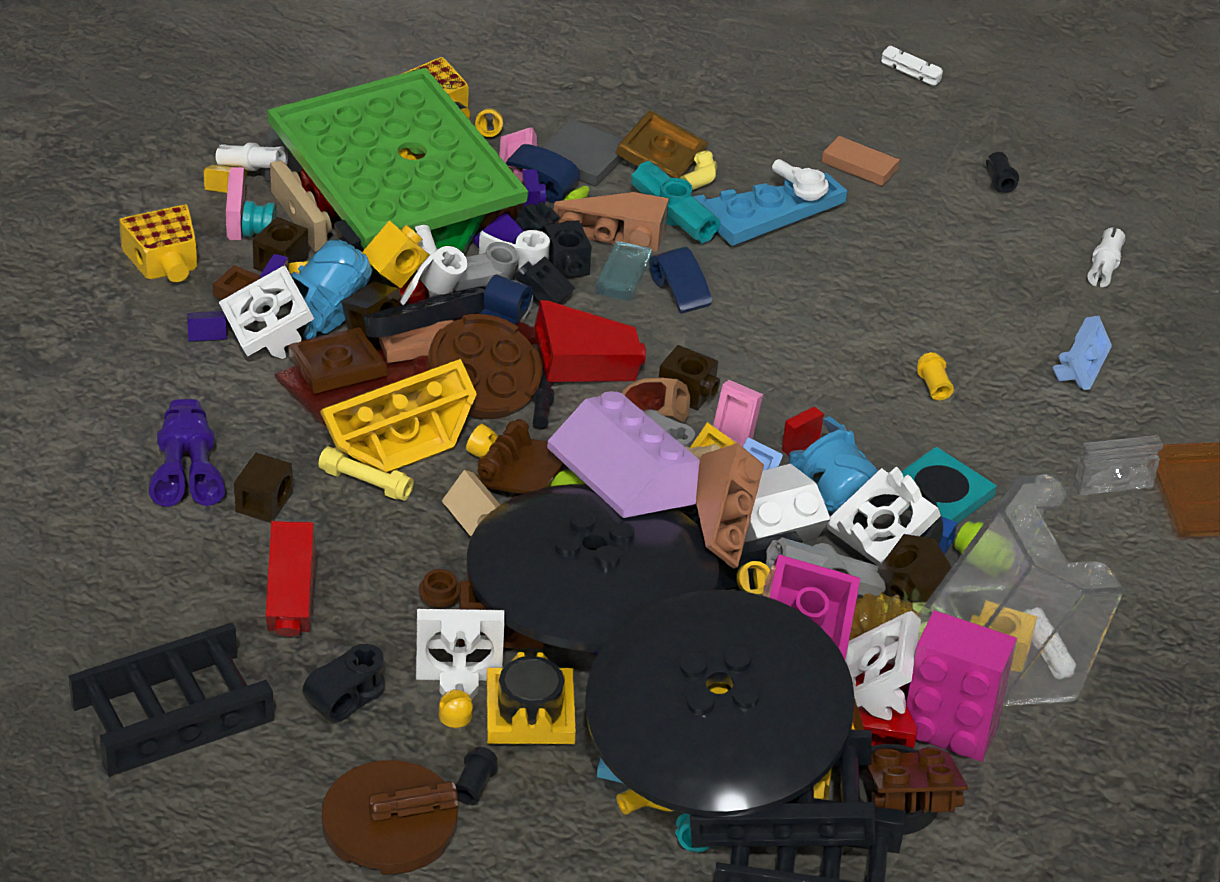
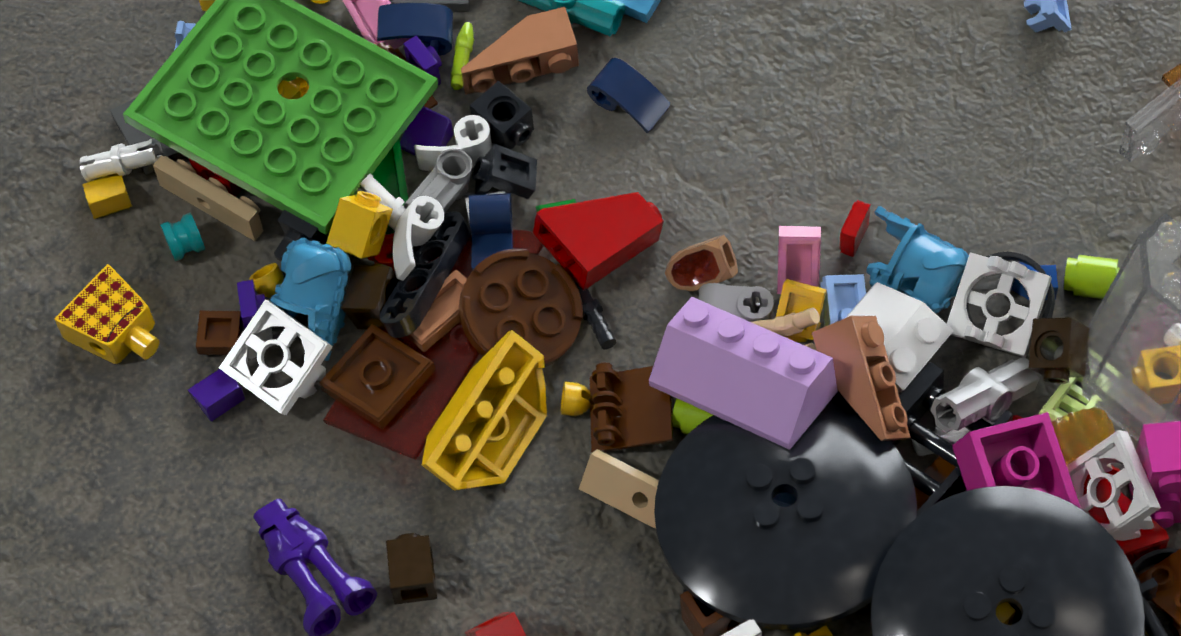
camera: 20 degrees left, 20 degrees up
(235, 203) = (145, 228): bright pink tile -> none
(283, 239) = (223, 277): dark brown brick -> none
(396, 485) = (527, 494): light yellow bar -> none
(439, 588) = (641, 585): reddish brown plate -> none
(536, 216) = (454, 98): black gear -> none
(623, 271) = (565, 110): clear light blue tile -> none
(695, 371) = (708, 204): dark brown brick -> none
(760, 574) = (941, 442): yellow hinge -> none
(932, 369) = (929, 91): yellow pin -> none
(951, 483) = (1011, 221): tile -> none

